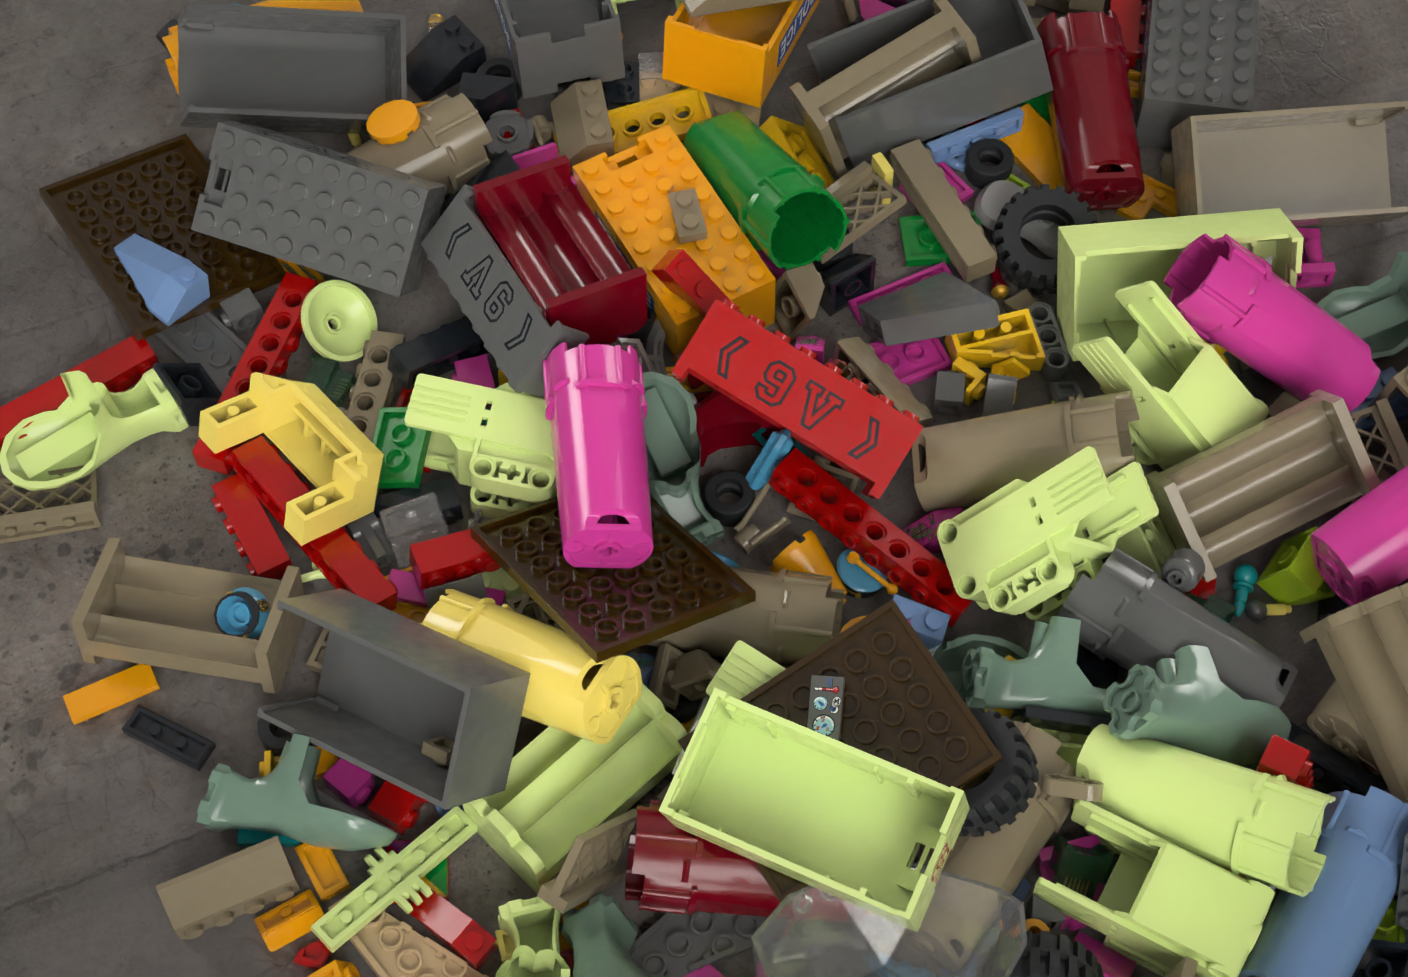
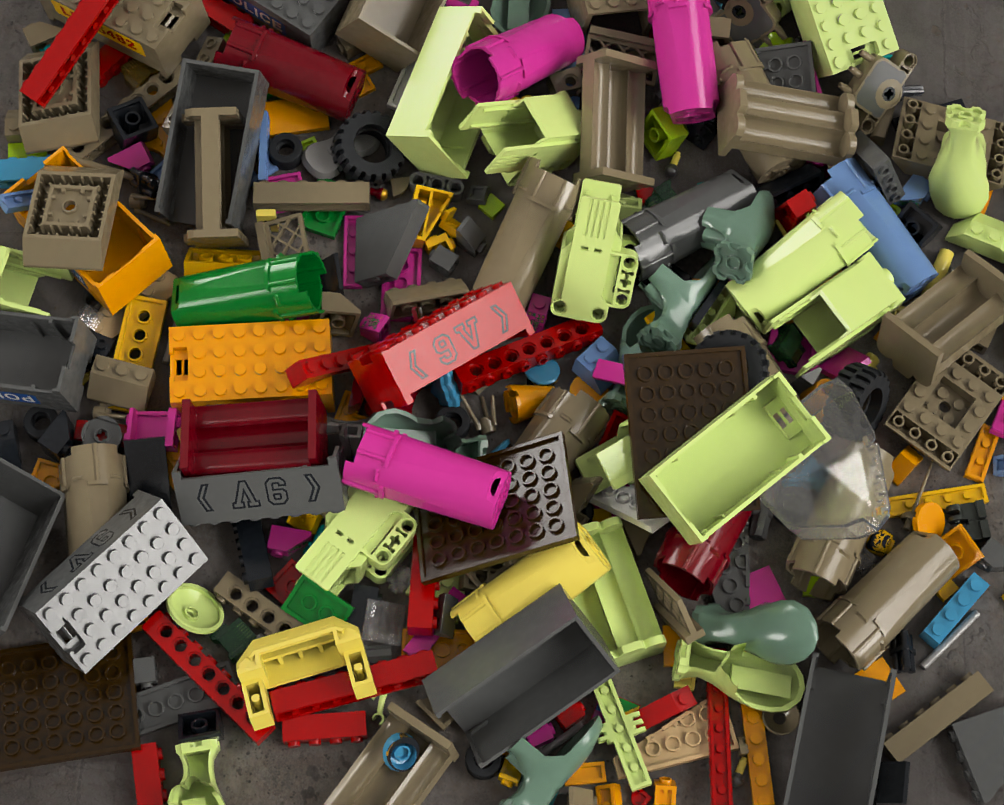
camera: 70 degrees left, 10 degrees up
(163, 278) = (102, 711): medium blue wedge -> none
(393, 122) = (72, 502): light orange tile -> none
(439, 749) = (563, 662): dark tan plate -> none
(687, 216) = (255, 348): dark tan plate -> none
(826, 705) = (668, 425): tile -> none
(853, 558) = (535, 370): light orange hinge -> none
(1071, 787) = (762, 321): dark tan beam -> none
(1183, 569) = (646, 193): dark grey head -> none
(1244, 576) = (650, 166): teal bar -> none

